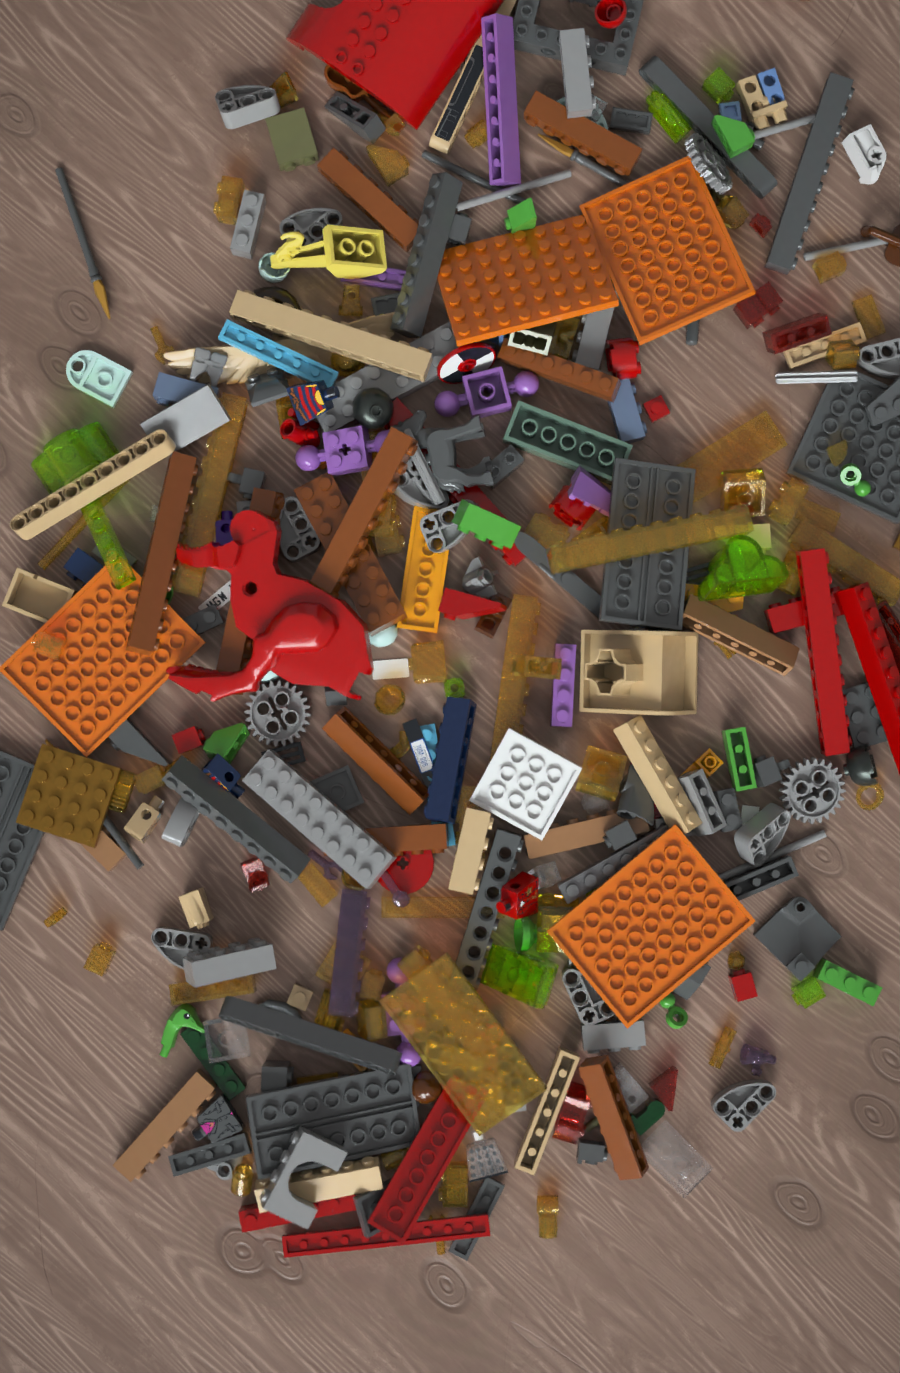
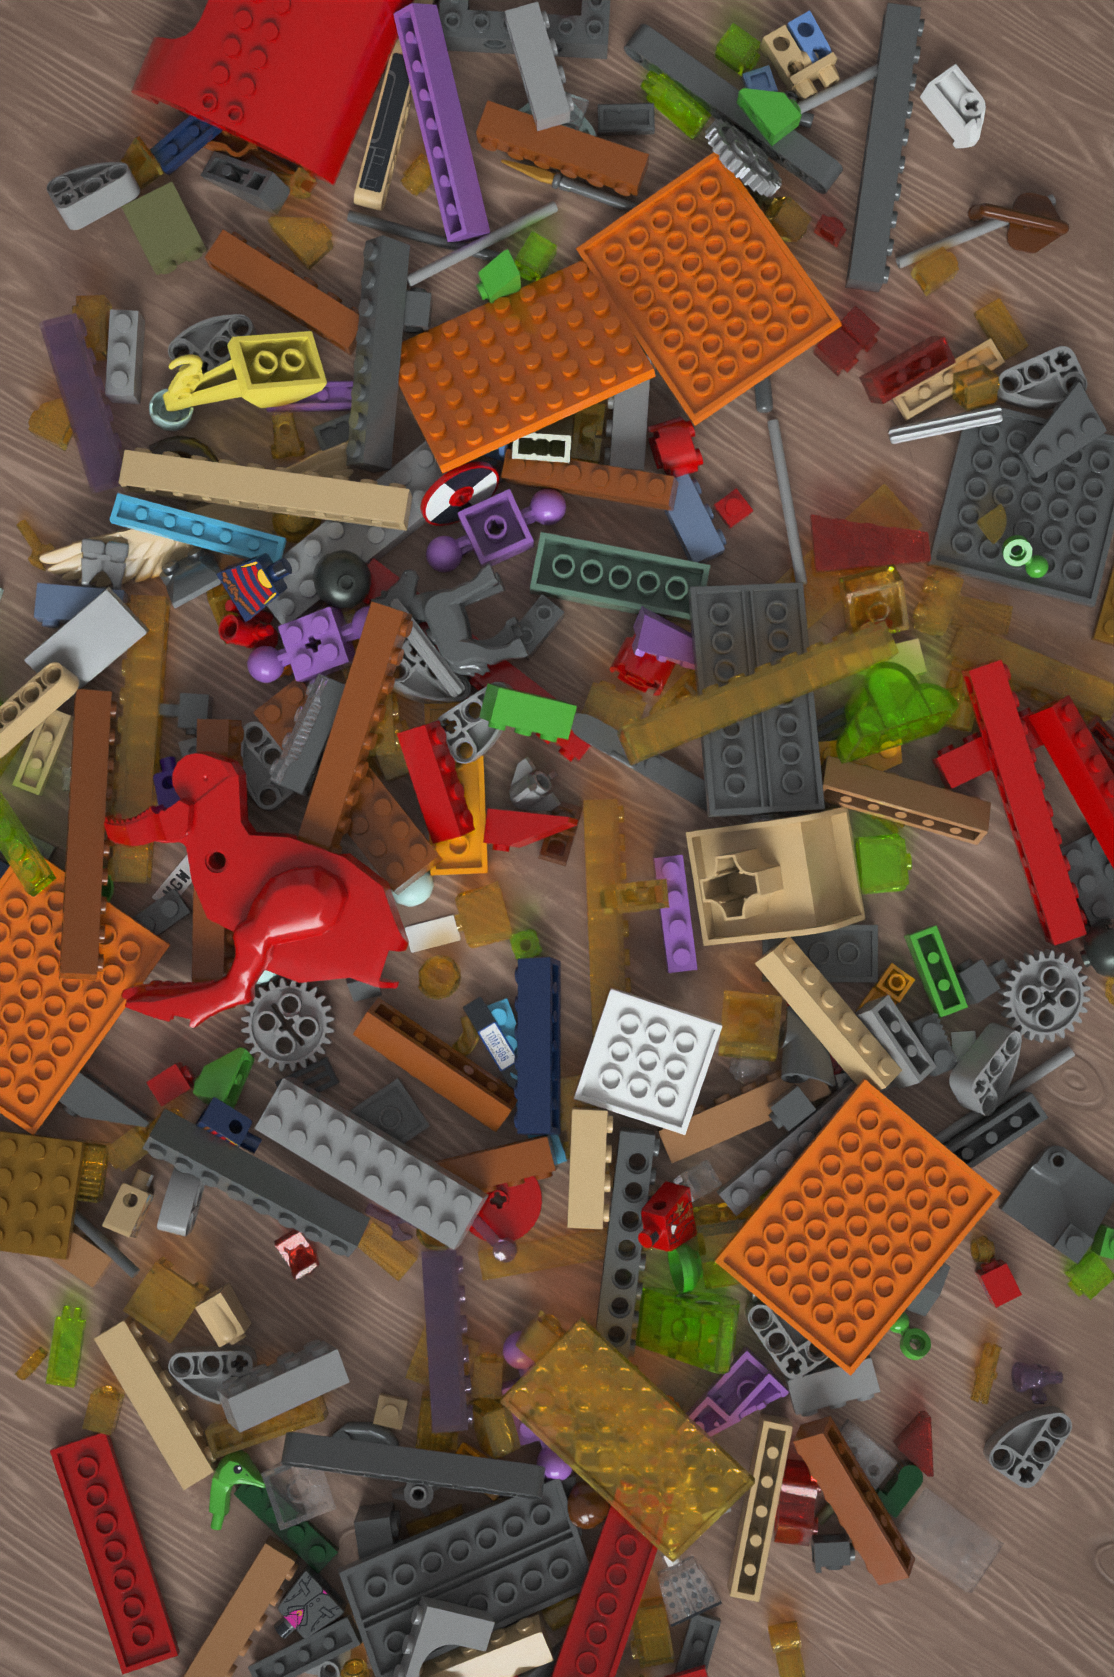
camera: 10 degrees left, 0 degrees up
(81, 911) = (66, 1348): none -> clear neon green hinge
(89, 1059) = (115, 1552): none -> red plate
(138, 960) = (157, 1401): none -> tan brick
(140, 492) = (42, 753): none -> tan plate
(157, 890) = (165, 1300): none -> clear yellow panel
(193, 260) = (51, 424): none -> clear yellow slope
(214, 250) = (83, 400): none -> clear purple brick
(305, 1060) = (414, 1498): none -> light grey brick
(316, 81) = (183, 143): none -> dark blue hinge
(330, 514) = (307, 742): none -> piece
(413, 561) = (436, 781): none -> red brick
(545, 1028) = (737, 1394): none -> medium lavender wedge
(549, 206) = (535, 257): none -> clear neon green brick
(673, 733) = (839, 954): none -> dark grey plate
(695, 379) = (787, 501): none -> light grey piece
(715, 677) = (882, 863): none -> clear neon green torso
(736, 450) = (855, 545): none -> clear red wing

